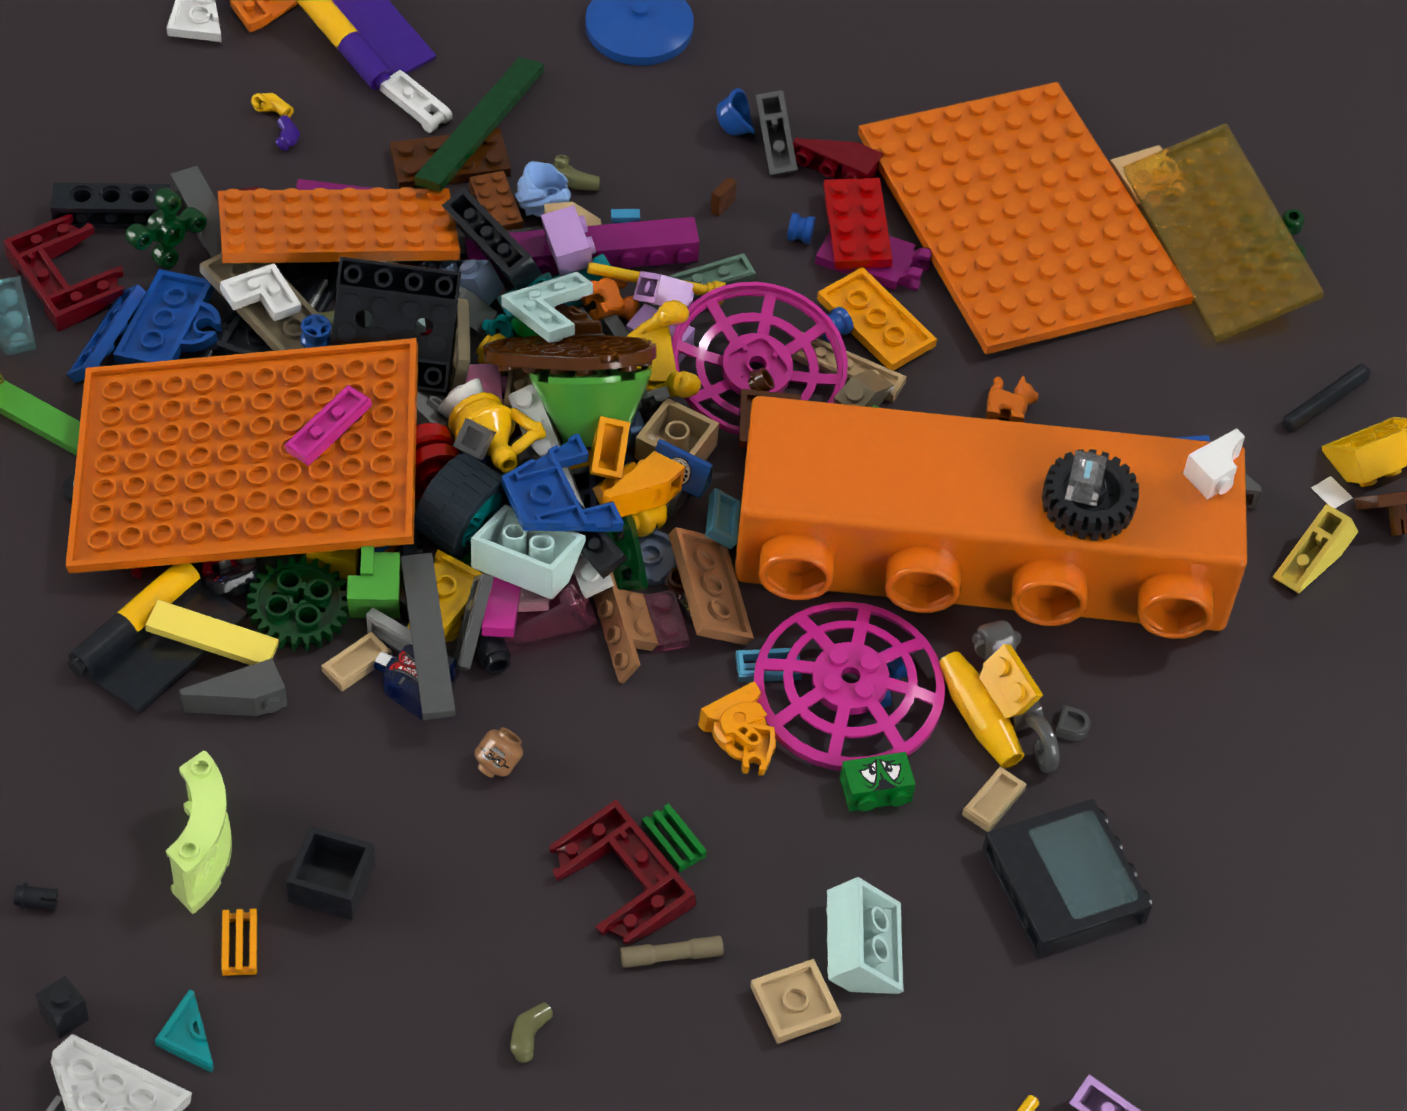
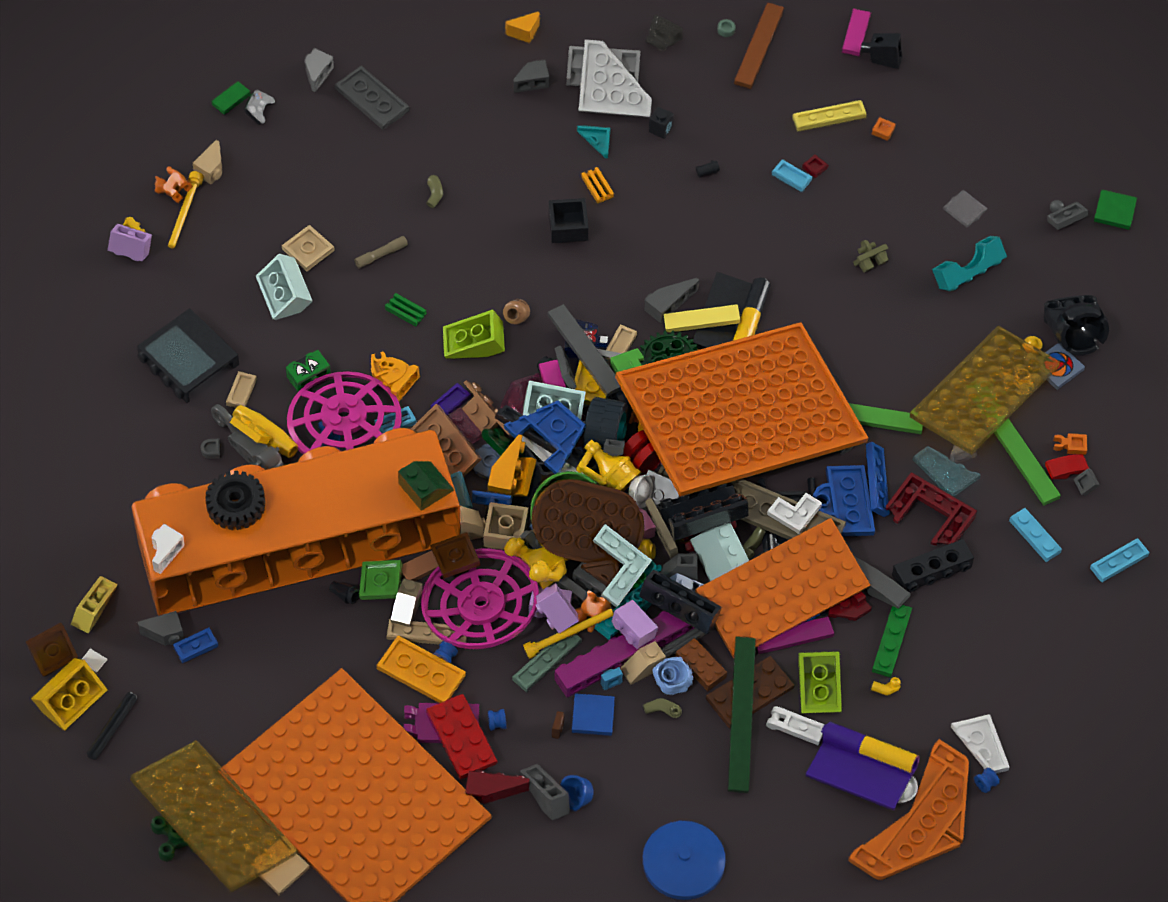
camera: 160 degrees right, 5 degrees up
(166, 228) = (882, 541): dark green gear -> none
(205, 845) = (641, 215): yellowish green fence -> none
(233, 147) = (891, 640): none -> green plate
(289, 133) = (860, 668): dark purple arm -> none
(316, 325) = (751, 495): blue wheel -> none
(328, 425) = (700, 424): dark pink tile -> none
(352, 134) = (819, 682): none -> lime slope
(586, 741) = (474, 336): none -> lime slope
(609, 448) = (533, 471): light orange slope -> none
(616, 831) = (437, 298): dark red wedge -> none
(669, 197) = (593, 714): none -> blue tile
(669, 666) = (453, 399): none -> dark purple tile
(729, 462) = (472, 523): none -> tan slope
(761, 380) = (470, 573): reddish brown plate -> none
(796, 422) = (423, 483): none -> dark green slope
(1007, 404) = (314, 637): orange animal -> none
(1086, 478) = (239, 487): clear brick -> none

